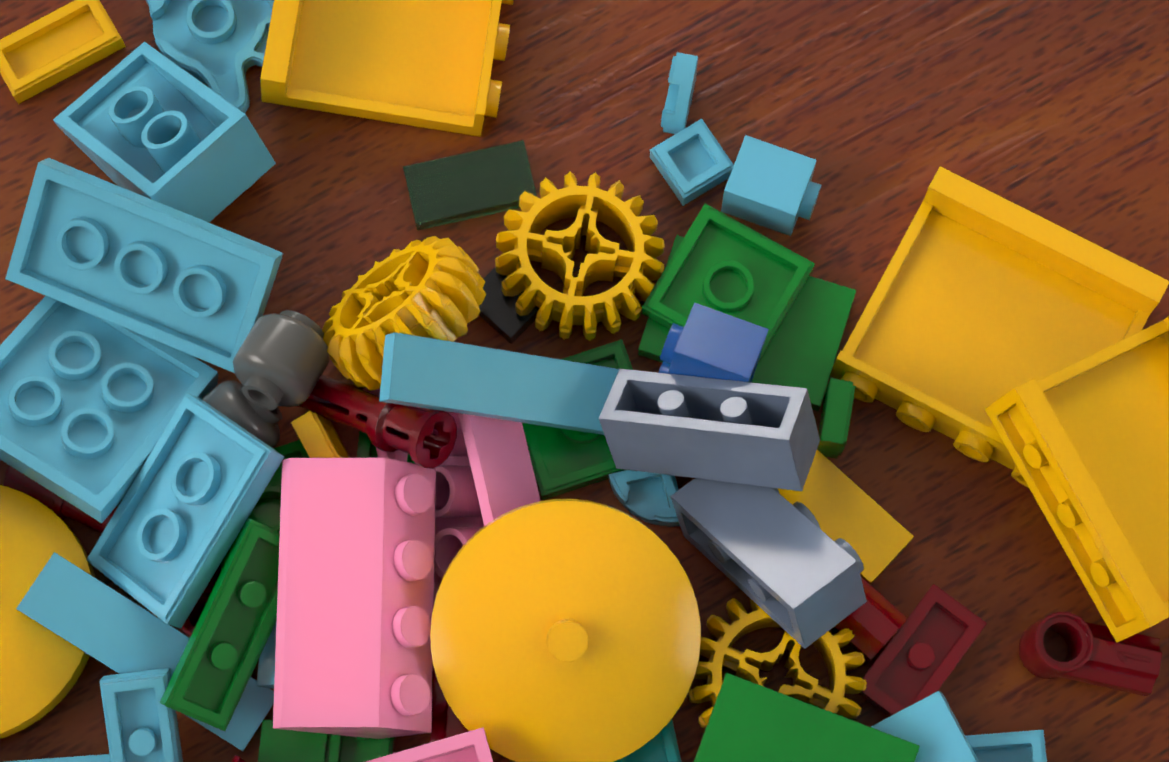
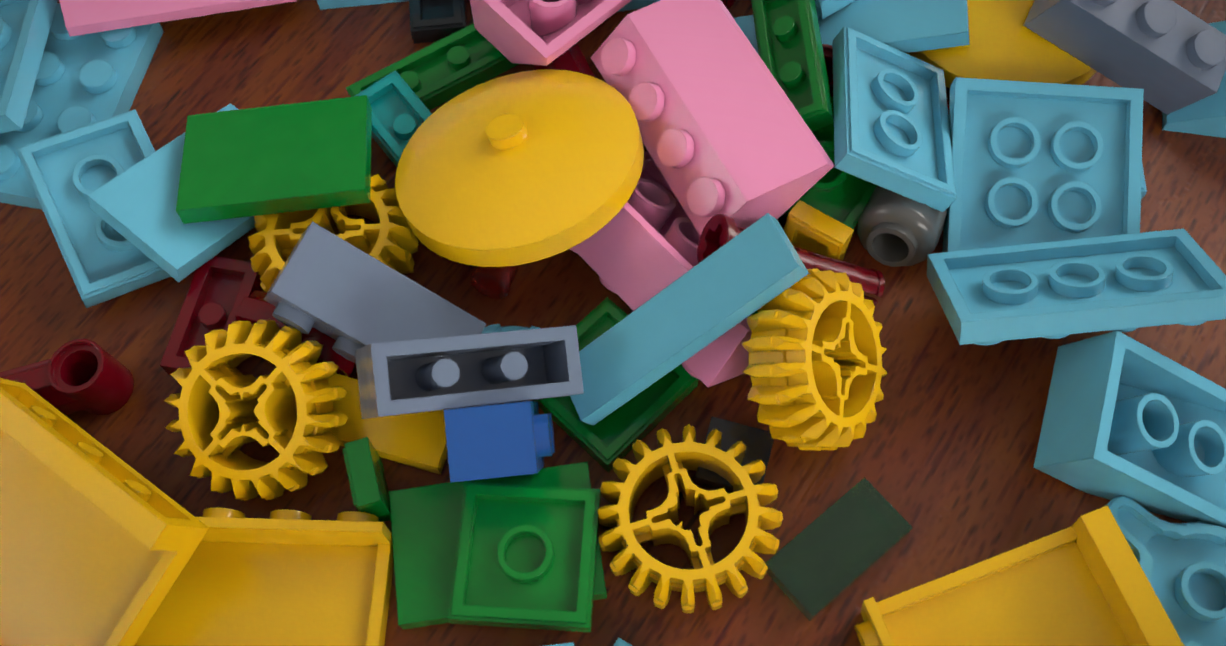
camera: 155 degrees right, 10 degrees down
(281, 360) = (896, 262): dark grey head -> none
(915, 505) = (221, 409): none -> yellow gear

